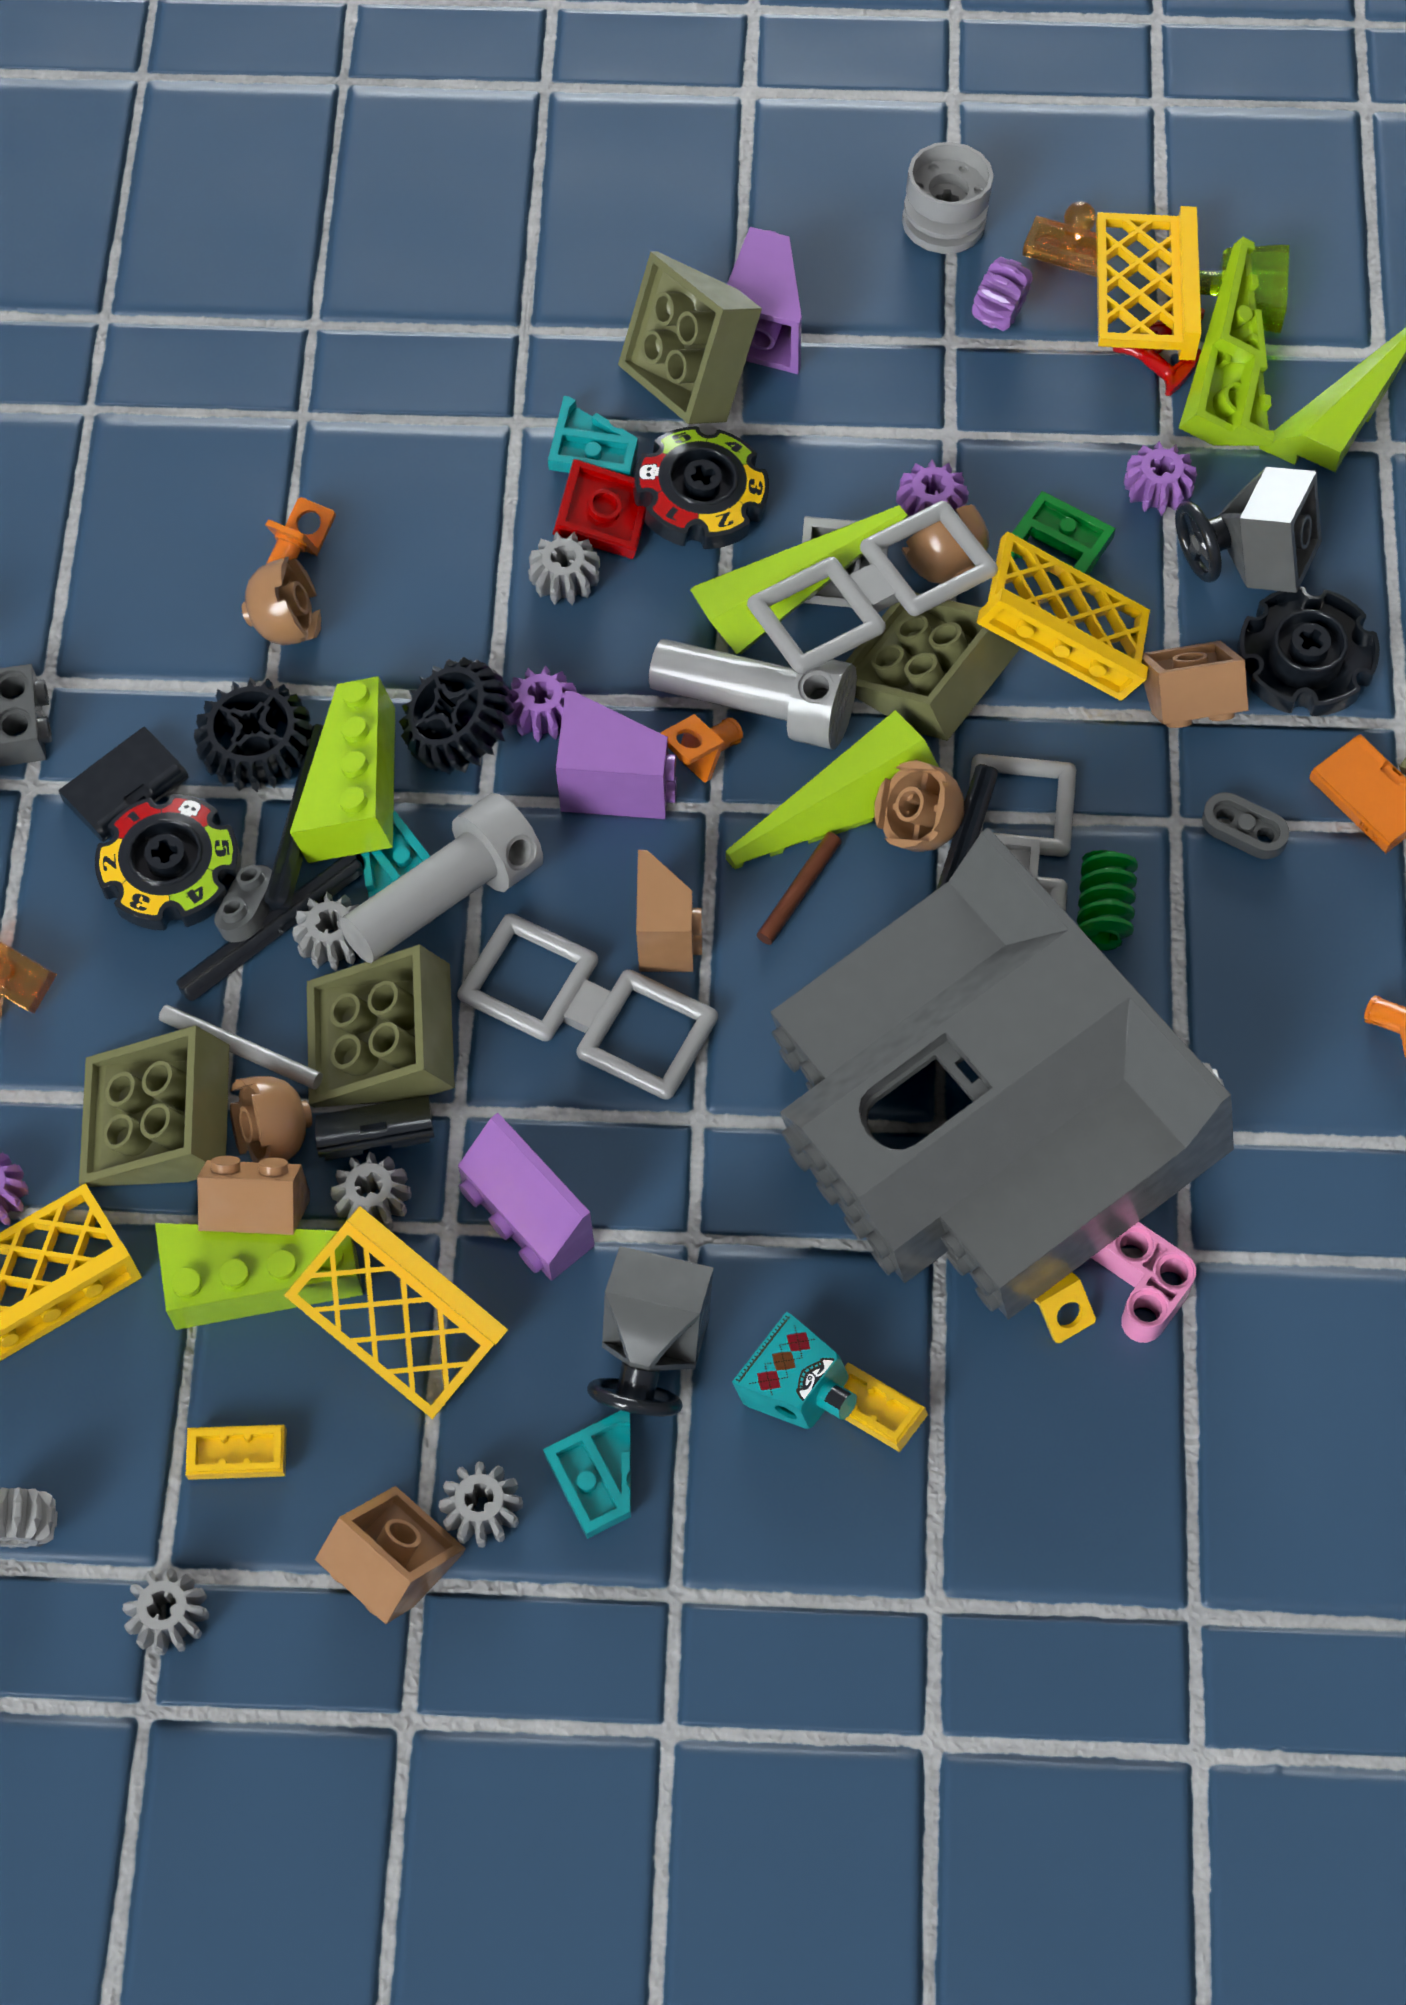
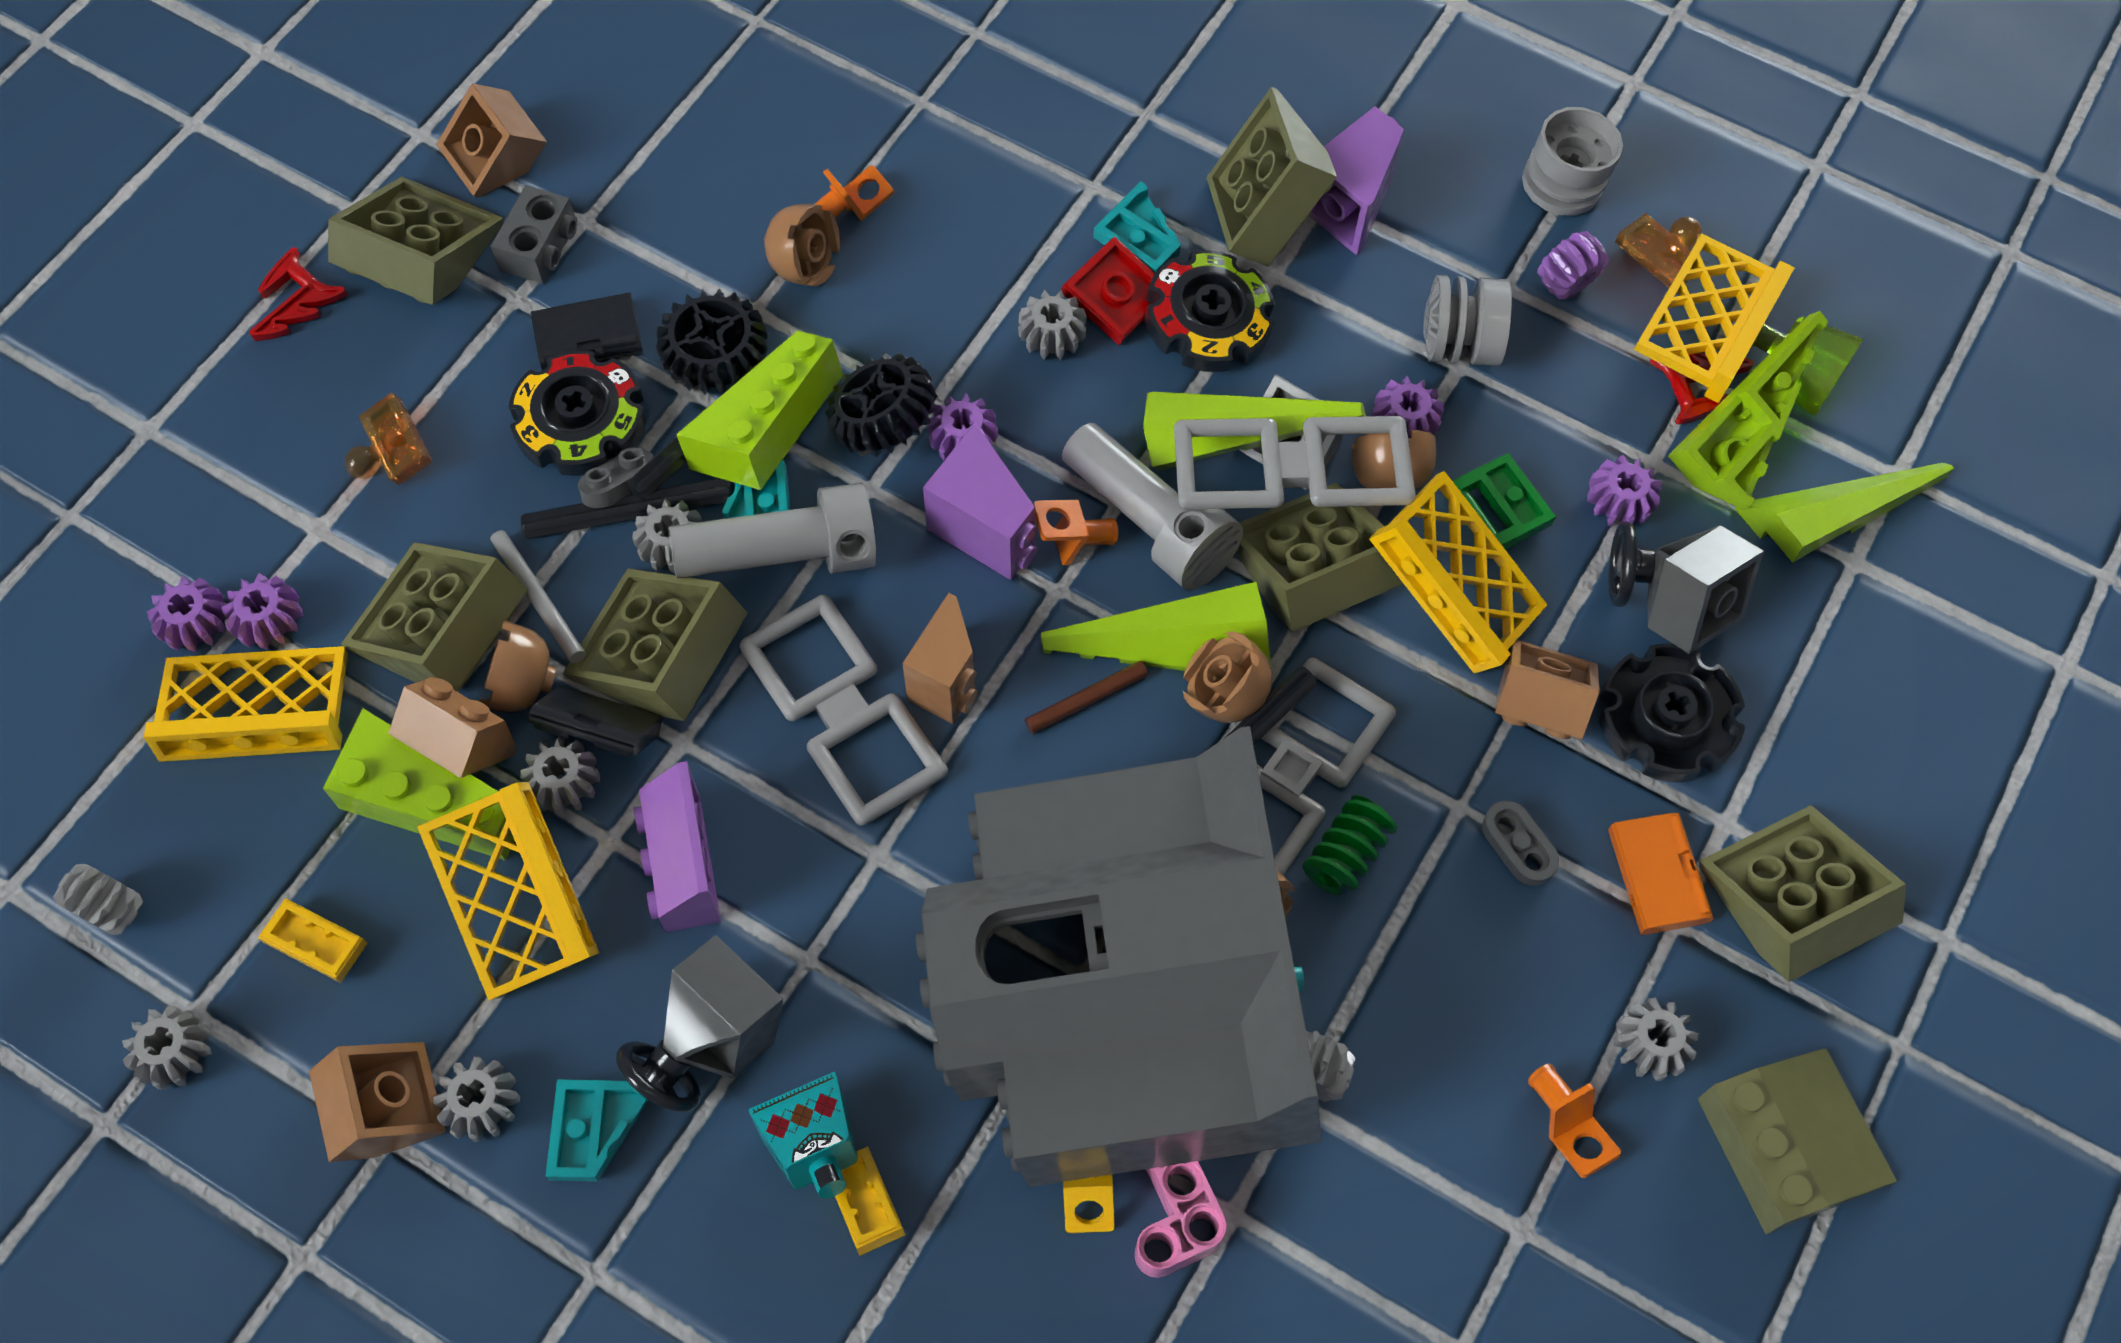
camera: 25 degrees right, 0 degrees up
(941, 387) = (1471, 321): none -> light grey wheel

